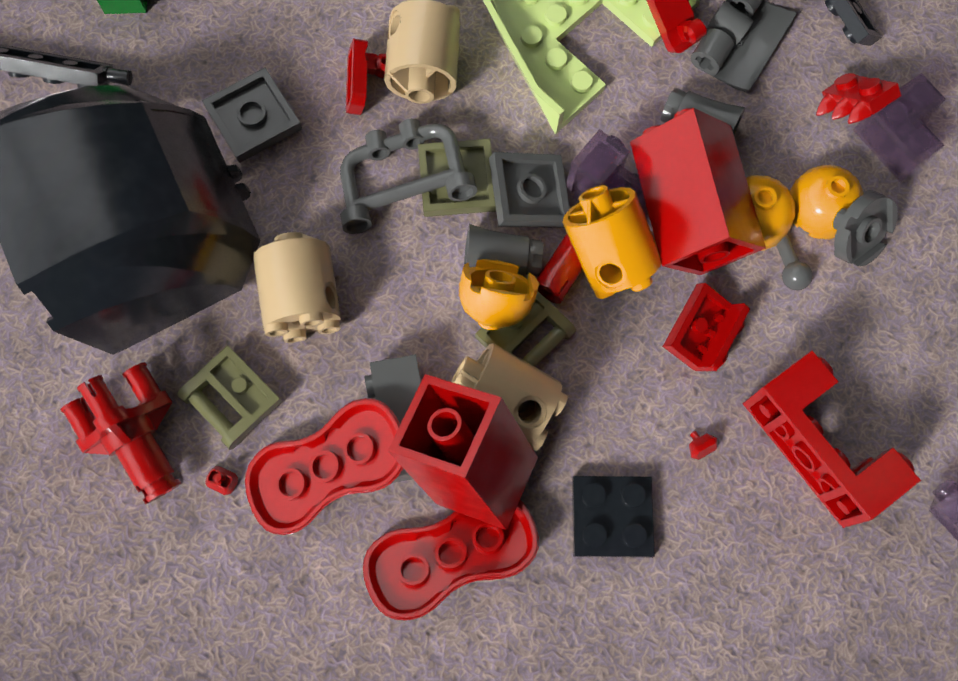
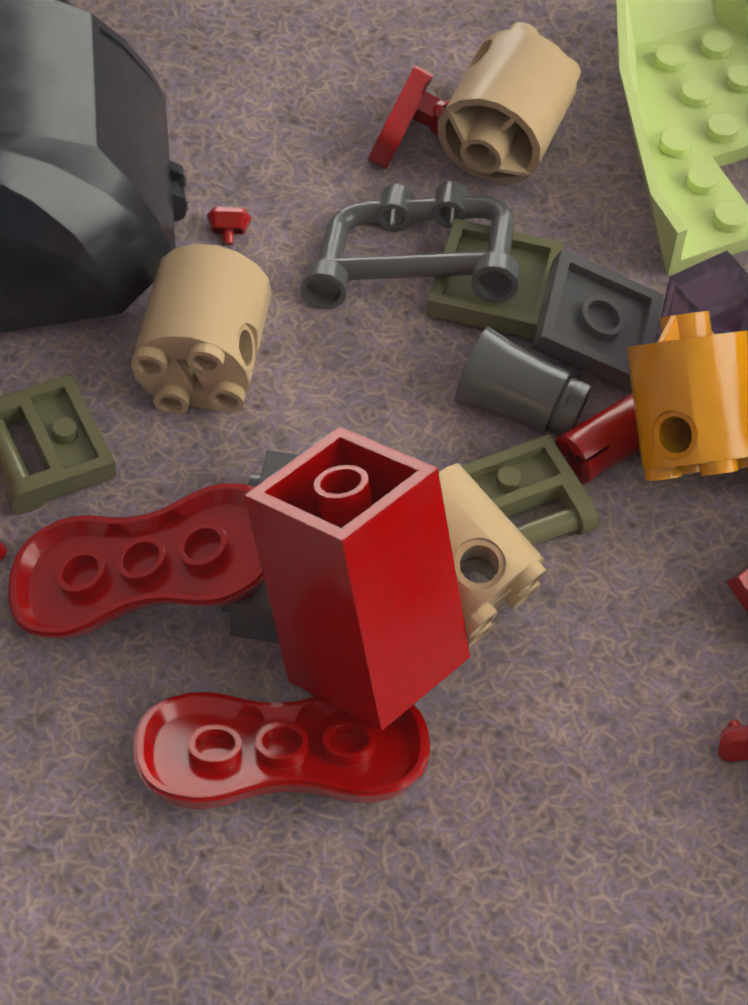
camera: 20 degrees right, 20 degrees down
(252, 115) = (232, 121): dark grey plate -> none
(279, 191) = (228, 222): none -> red rock
(496, 293) = (490, 419): light orange cylinder -> none
(612, 516) = (558, 791): black plate -> none

